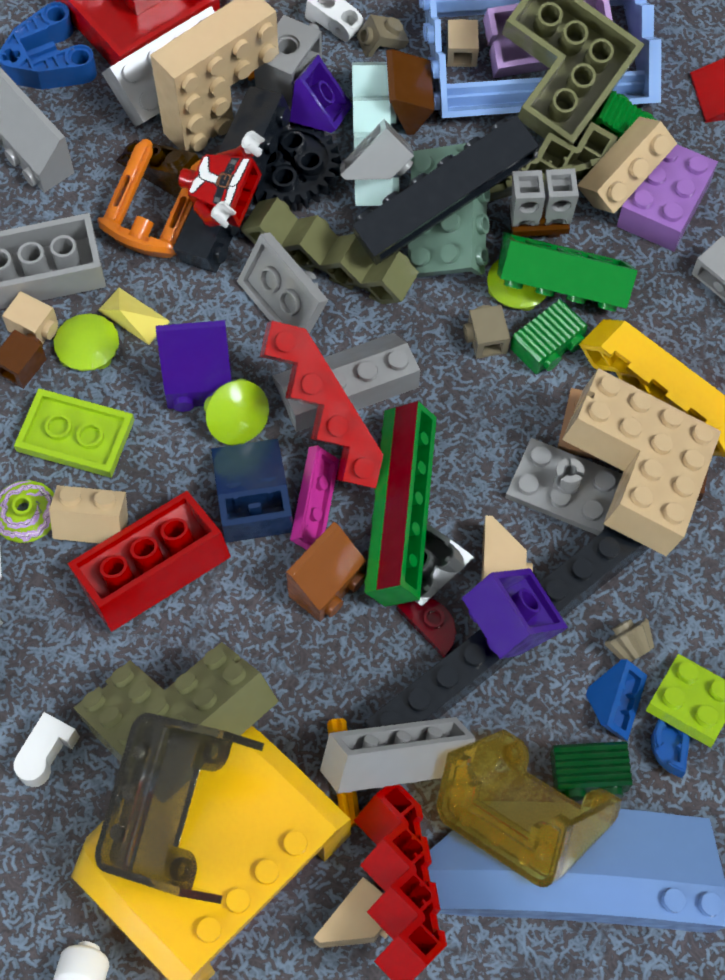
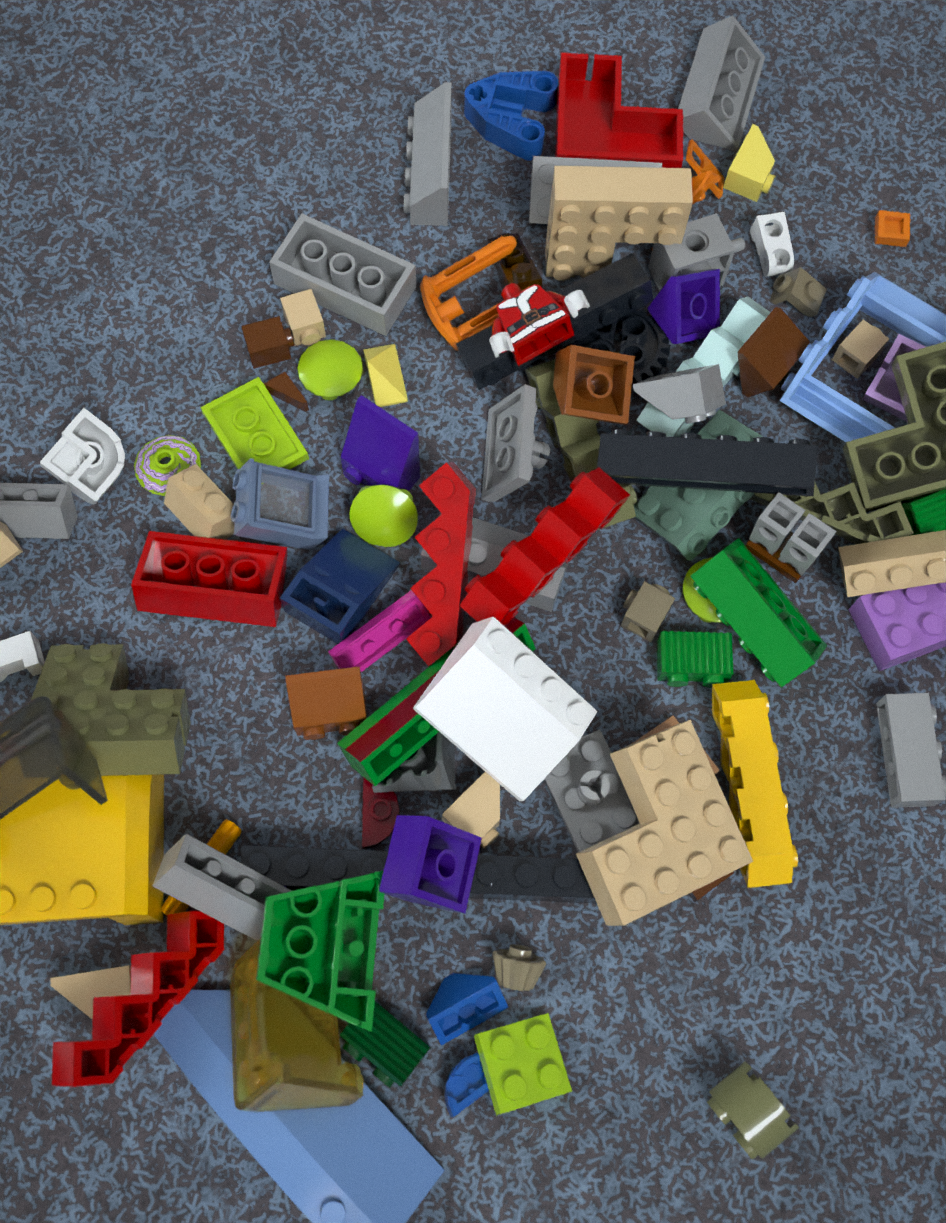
camera: 40 degrees right, 5 degrees up
(69, 383) = (285, 390): none -> reddish brown piece
(154, 463) = (280, 505): none -> sand blue window
(309, 196) = (593, 384): none -> dark orange slope
(388, 337) = (556, 539): none -> red brick
(461, 465) = (504, 708): none -> white slope
(496, 730) = (324, 945): none -> green wedge

